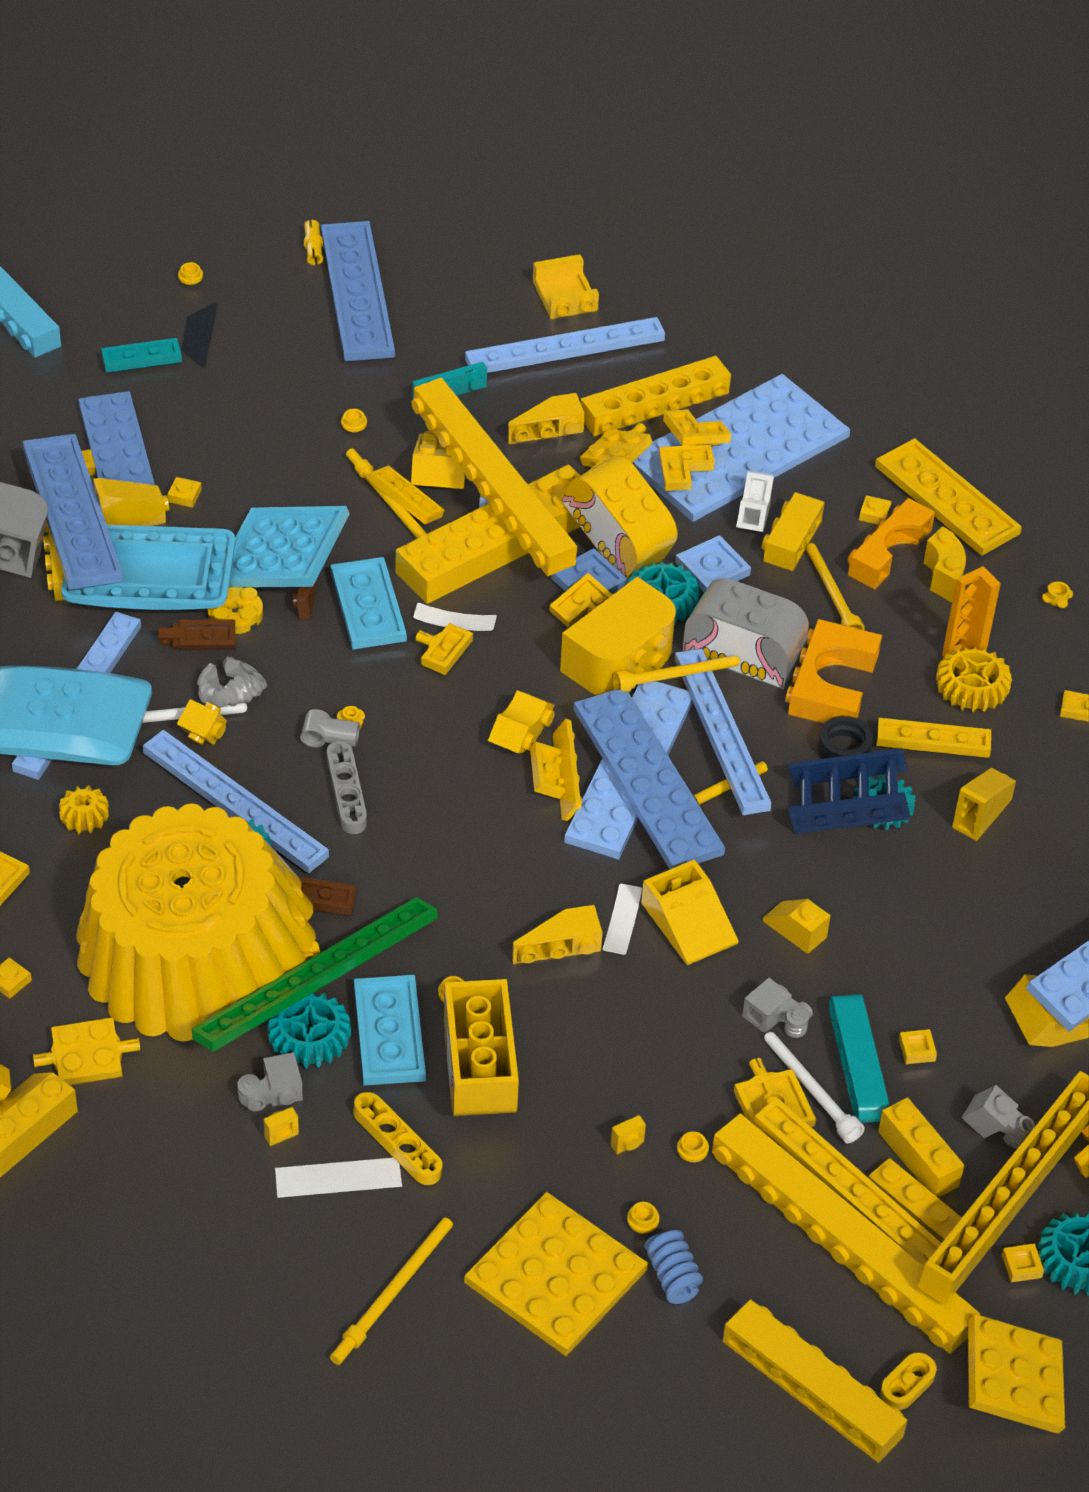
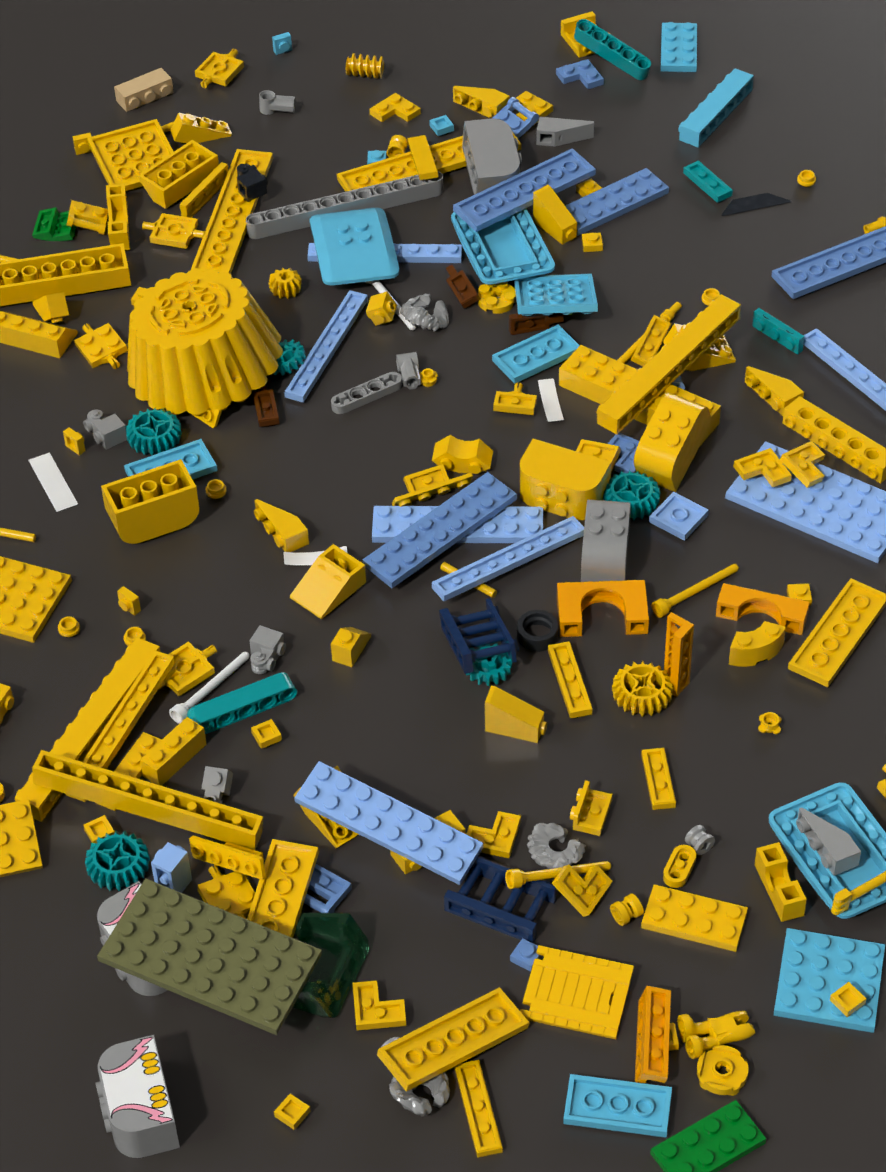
camera: 75 degrees right, 0 degrees up
(313, 974) = (189, 415): green plate -> none
(393, 1140) = (85, 495): yellow beam -> none
(617, 442) = (764, 432): yellow plate -> none
(627, 680) = (519, 490): yellow piece -> none
(674, 1266) = (30, 646): medium blue piece -> none
(755, 501) = (751, 523): white brick -> none
(792, 531) = (740, 549): yellow brick -> none

